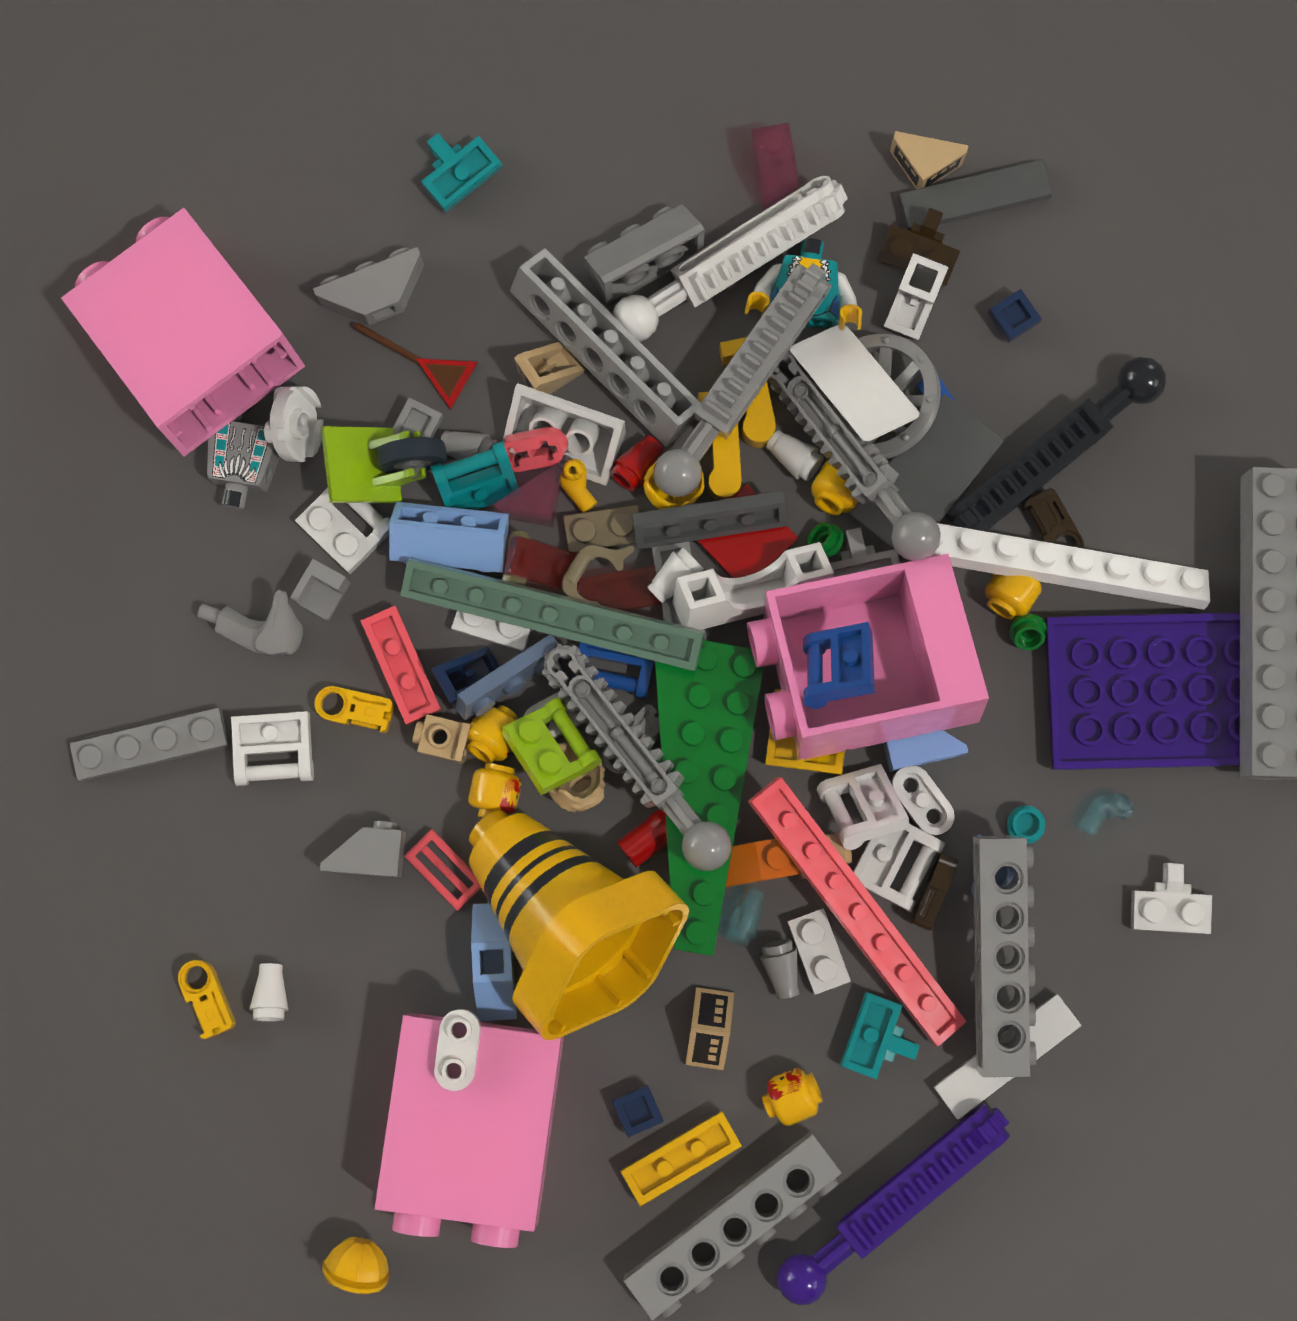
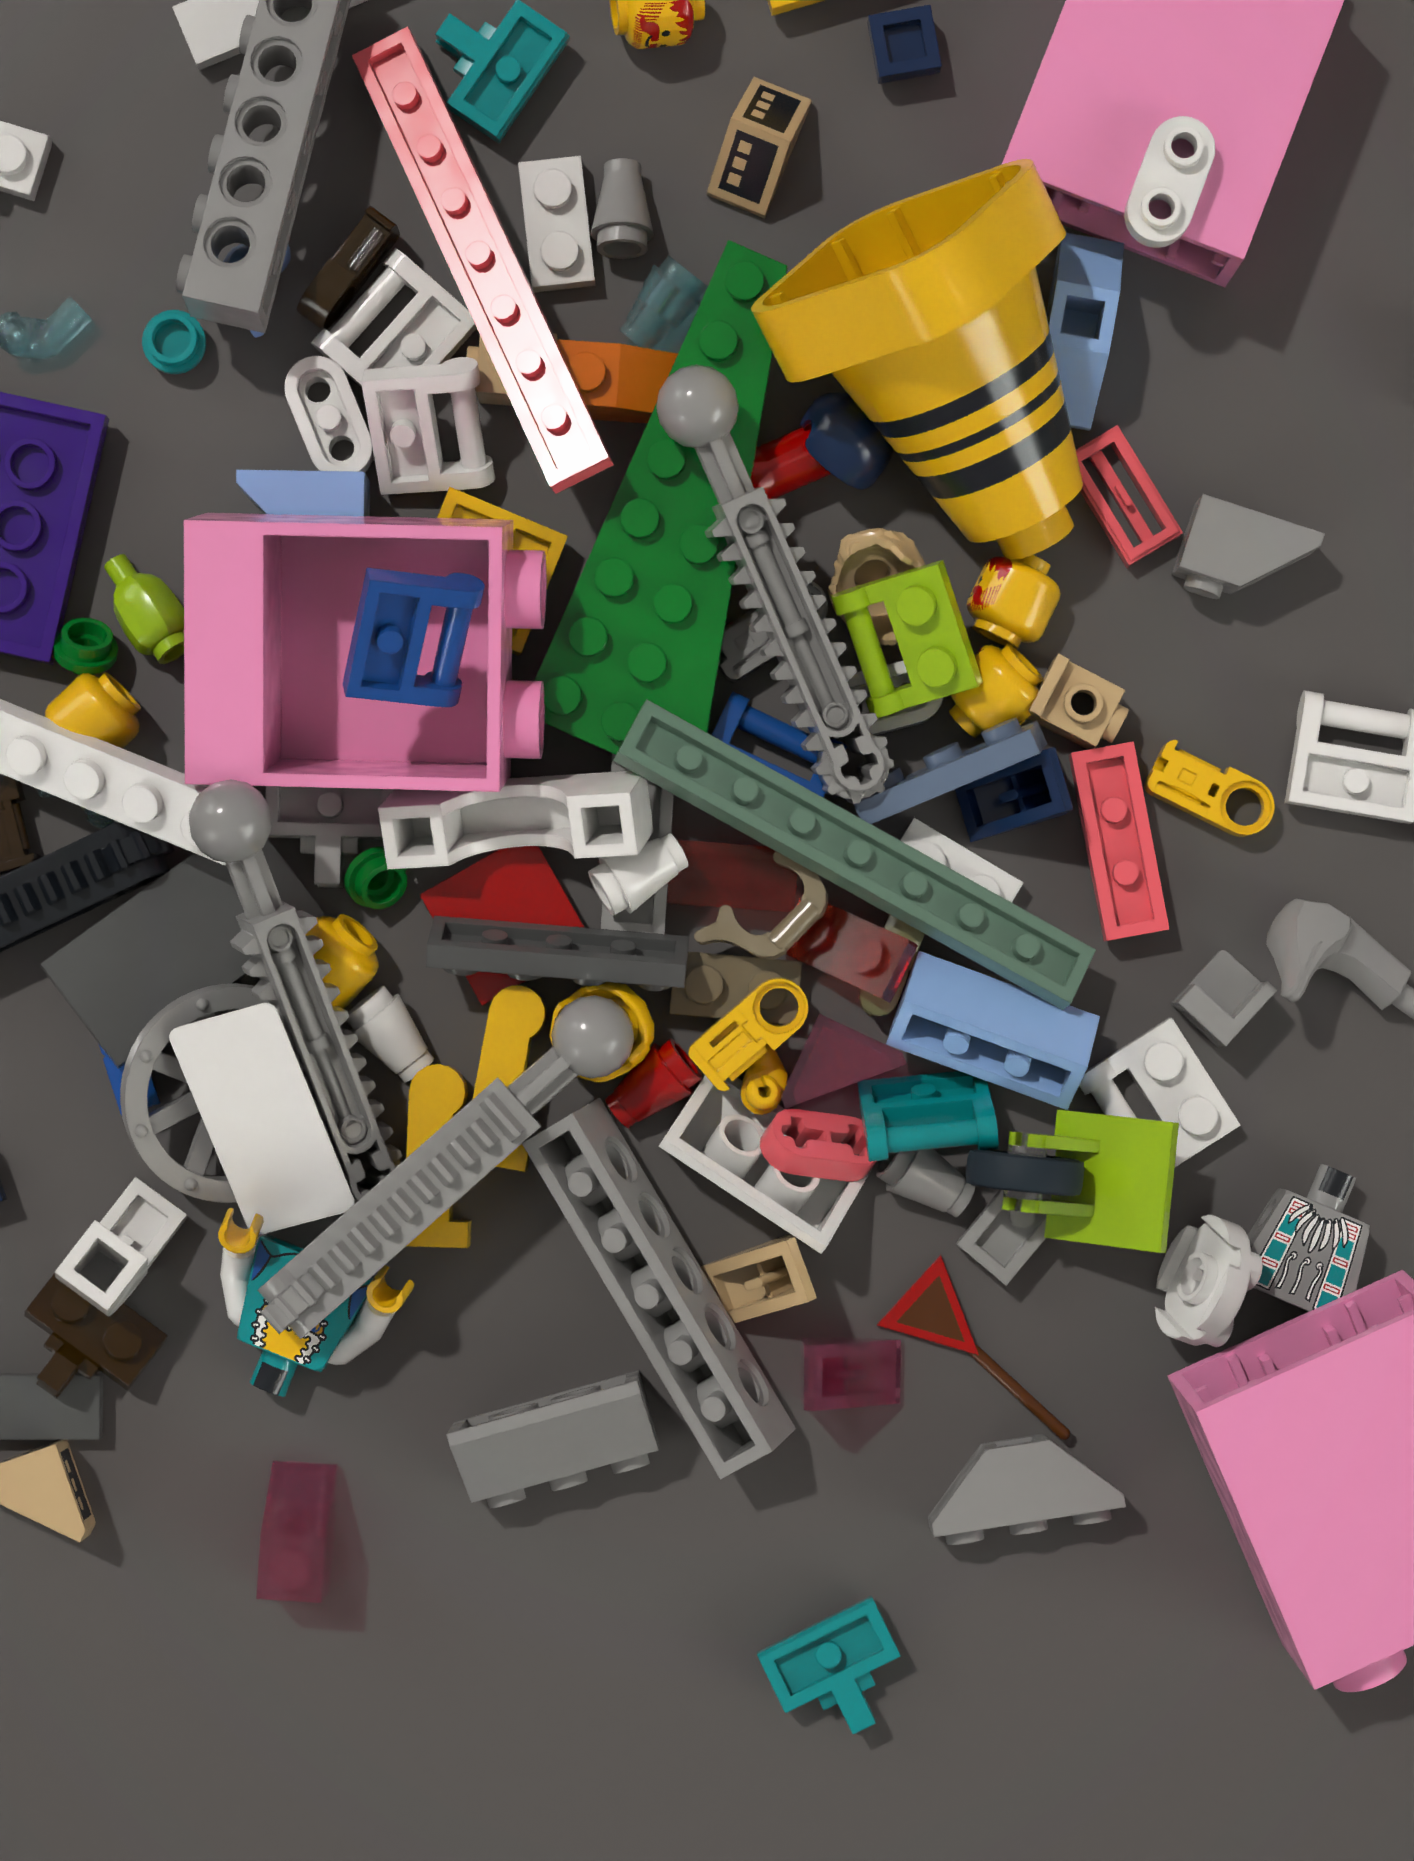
camera: 175 degrees left, 5 degrees up
(487, 328) = (849, 1373): none -> clear pink slope
(591, 499) = (742, 1033): none -> yellow piece
(616, 853) = (846, 440): none -> dark blue hair
(737, 254) = (400, 1396): white gear -> none
(1000, 663) = (147, 611): none -> lime plant

